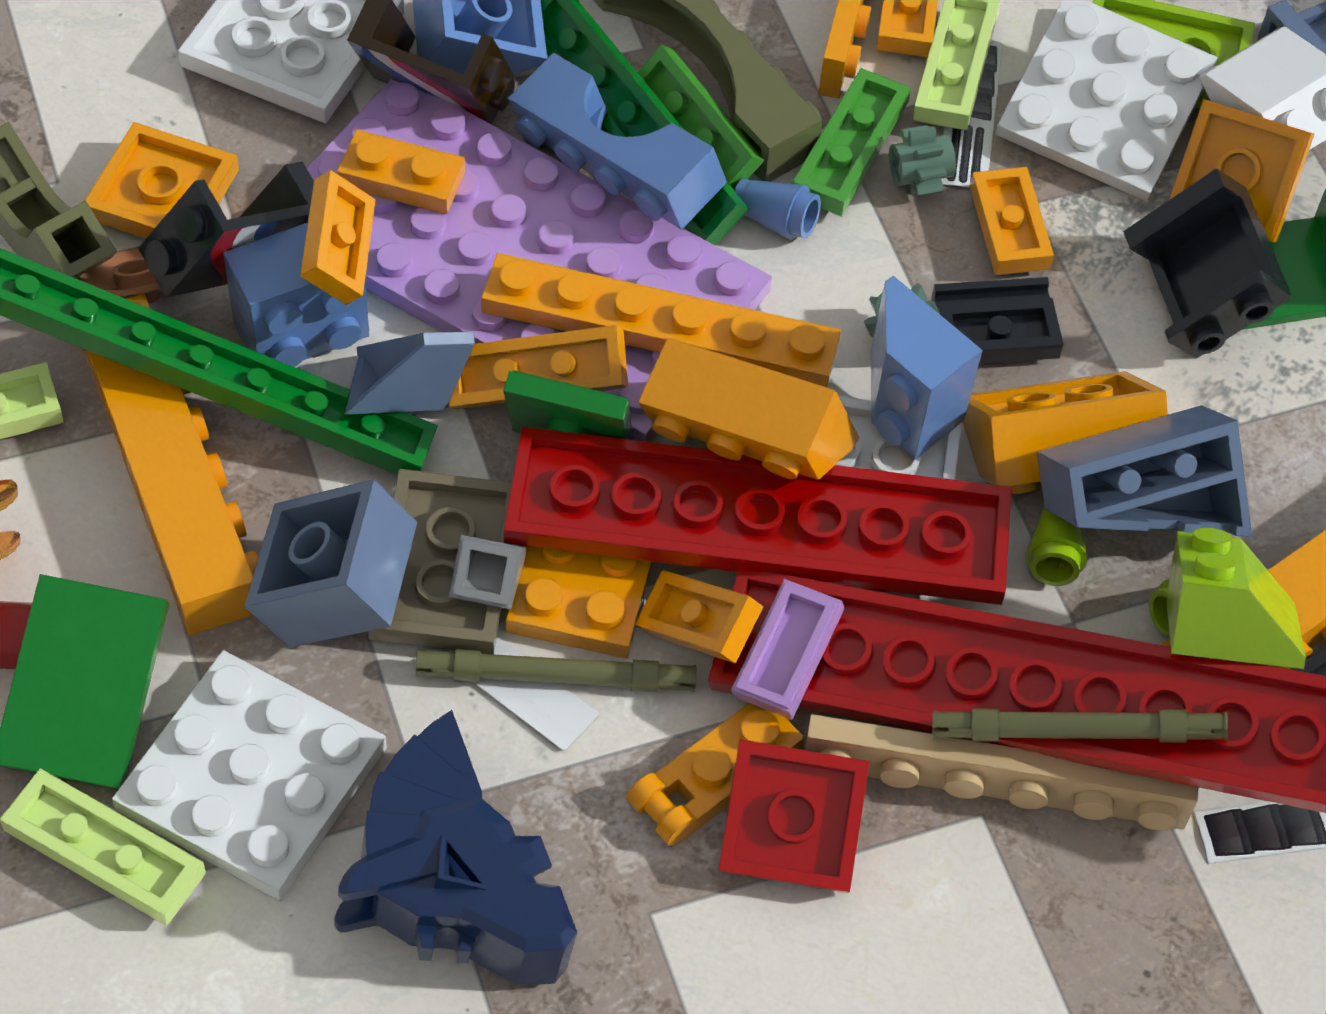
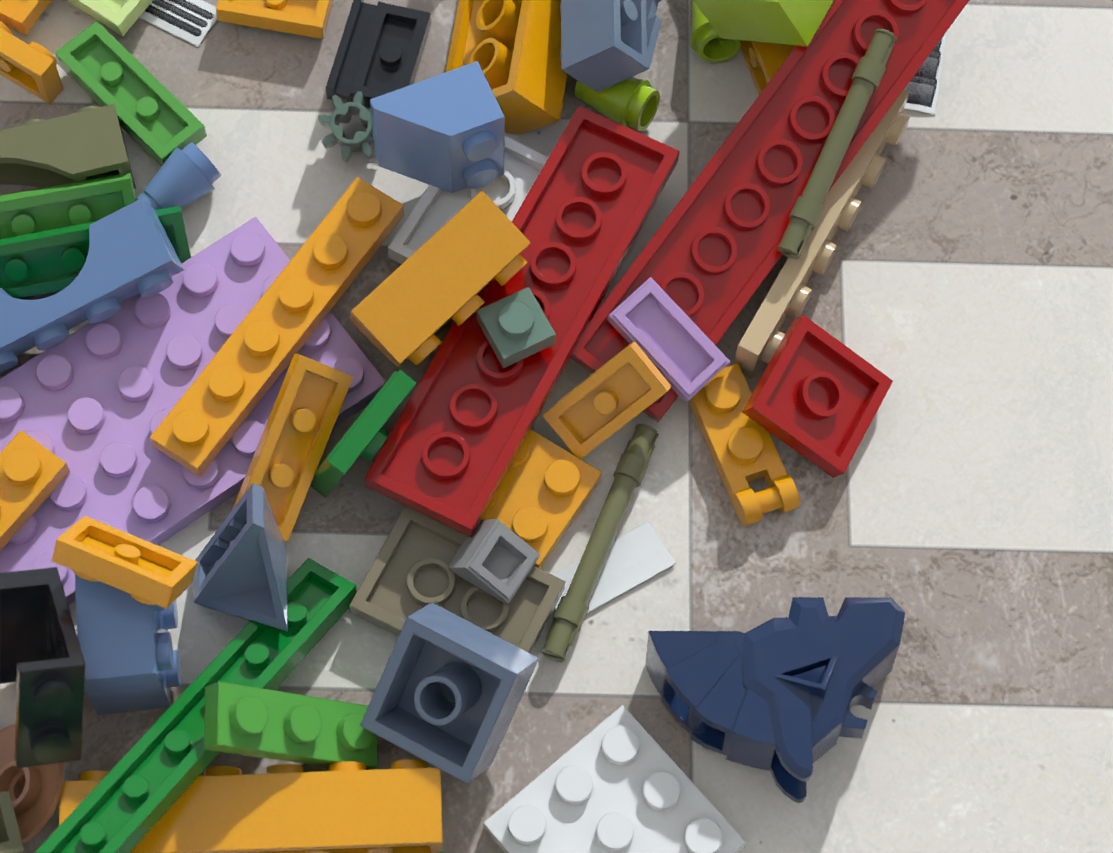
camera: 70 degrees left, 10 degrees up
(248, 439) = (286, 726): none -> bright green plate
(731, 499) = (516, 327): none -> sand green plate
(922, 160) = (184, 43): sand green gear -> none

